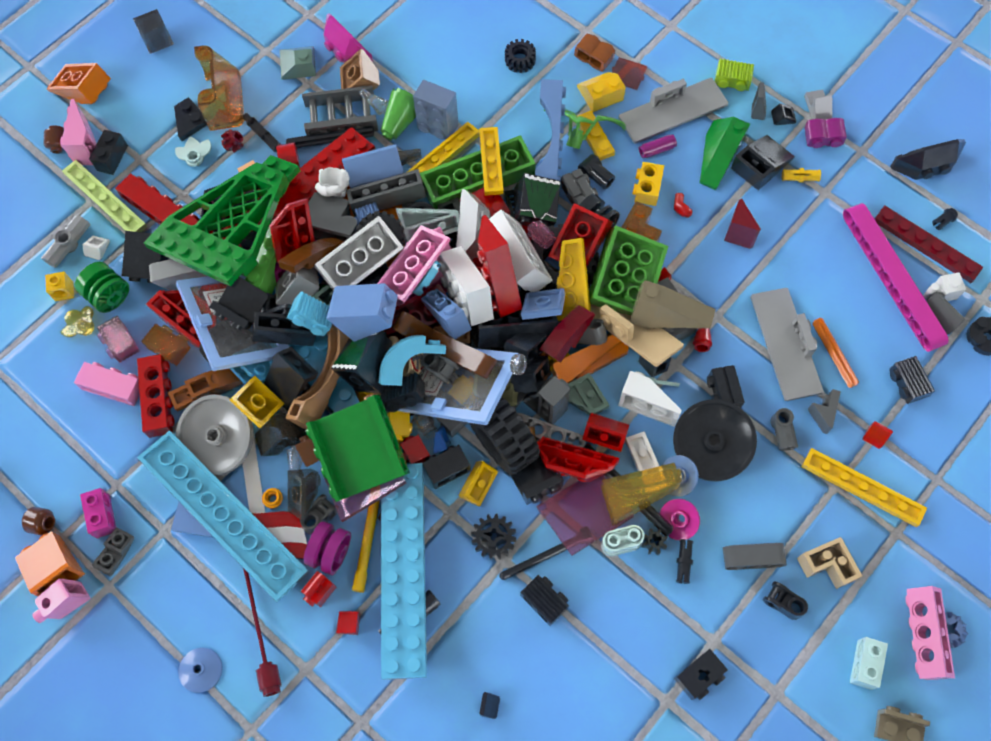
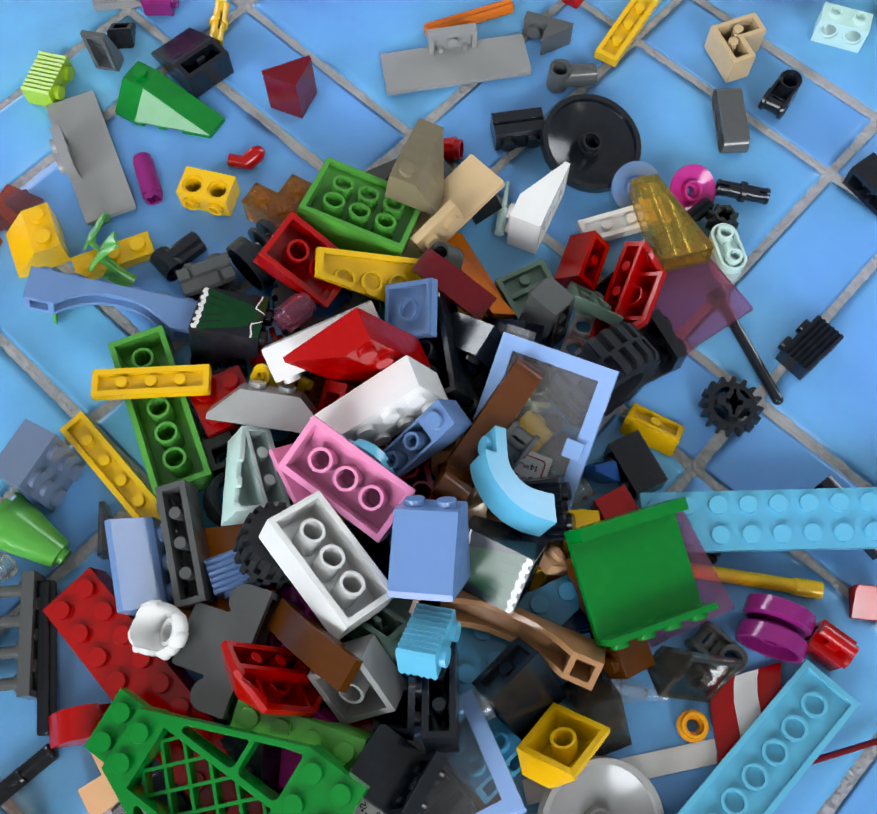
camera: 90 degrees left, 0 degrees up
(564, 430) = (590, 302): none -> sand green wing

